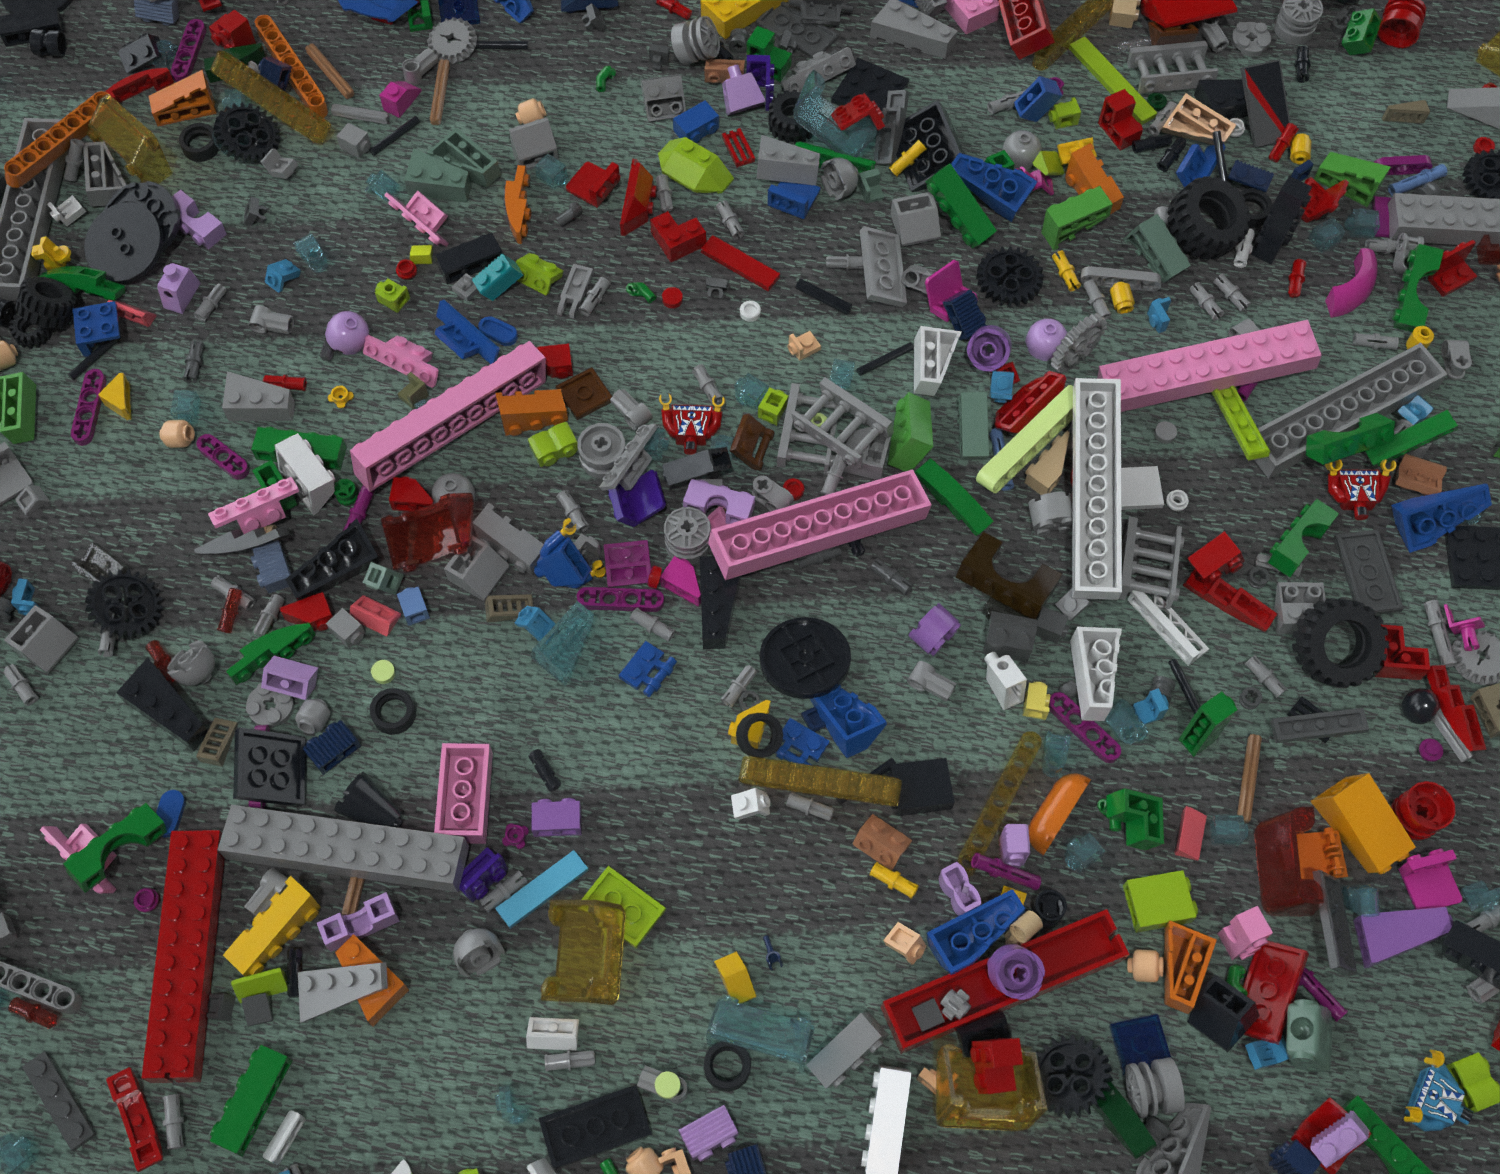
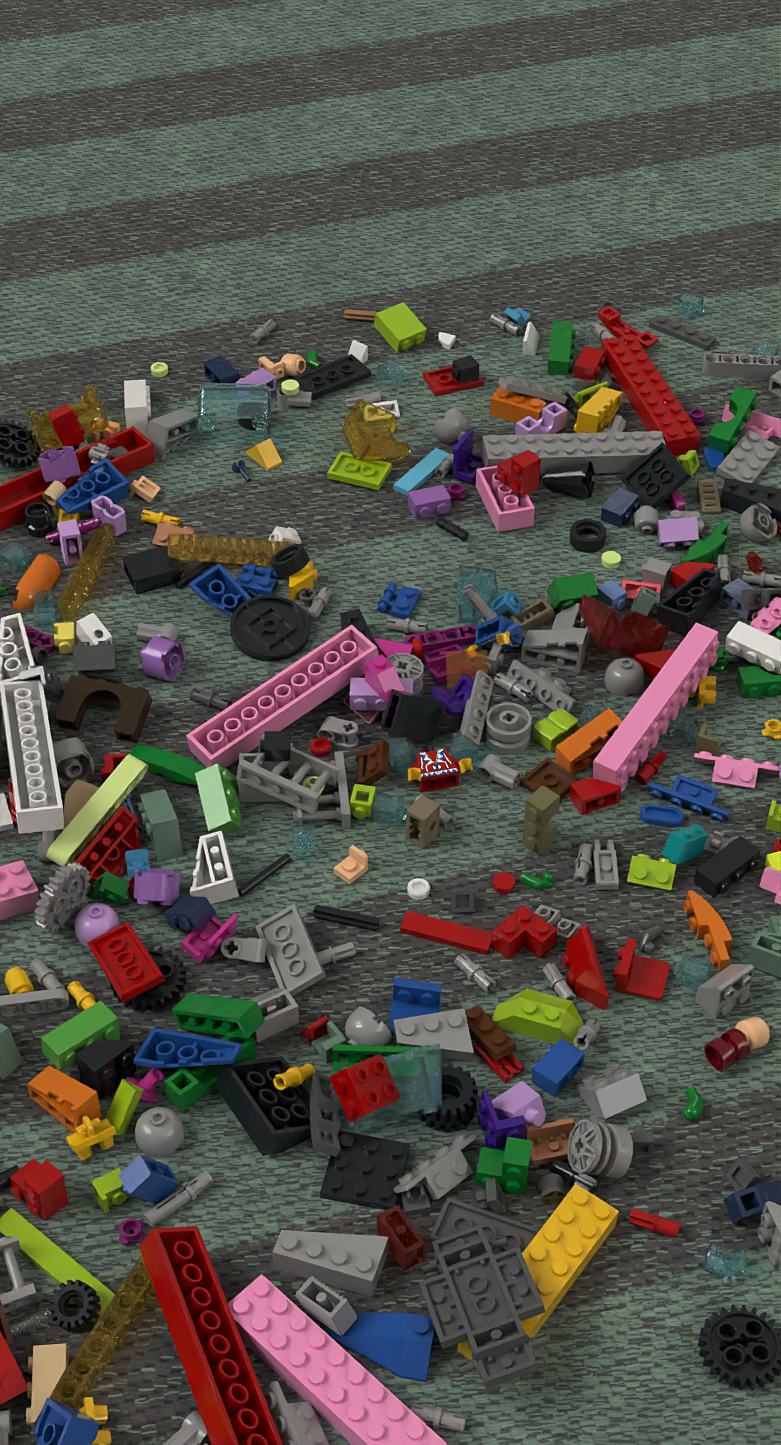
camera: 165 degrees right, 20 degrees down
(141, 784) = (748, 458): none -> light grey plate
(207, 805) = (689, 461): none -> lime tile
(228, 1050) = (589, 363): none -> red brick
(410, 1069) = (465, 369): none -> black brick
(428, 1079) = (442, 382): none -> red tile
(438, 780) = (520, 472): none -> red brick
(458, 603) = (569, 590): none -> green brick
(516, 444) = (588, 715): none -> clear light blue pin
(537, 501) = (545, 687): none -> light grey bracket
(565, 103) = (727, 1049): none -> dark red wheel
(565, 595) = (478, 603): none -> light grey pin
(614, 536) = (464, 663): none -> clear orange piece
(622, 315) = (538, 829): none -> olive arch
(643, 247) = (565, 927): none -> light grey slope
(663, 136) = (586, 1034): none -> light grey pin
(717, 493) = (382, 677): none -> dark pink slope
(726, 356) = (422, 822): none -> dark tan brick
(741, 162) = (489, 1033): none -> reddish brown plate
(850, 431) = (276, 746): none -> black brick
(861, 28) = (403, 1239): none -> clear red brick
(879, 202) = (315, 1030): none -> red slope
(1008, 512) = (111, 764): none -> red bracket
(1029, 282) = (126, 962): none -> red tile
(1031, 362) = (111, 889): none -> green brick
(1056, 191) = (106, 1064): none -> black slope
(1074, 601) = (49, 680): none -> flat silver bracket
(1102, 40) = (62, 1297): none -> black tyre

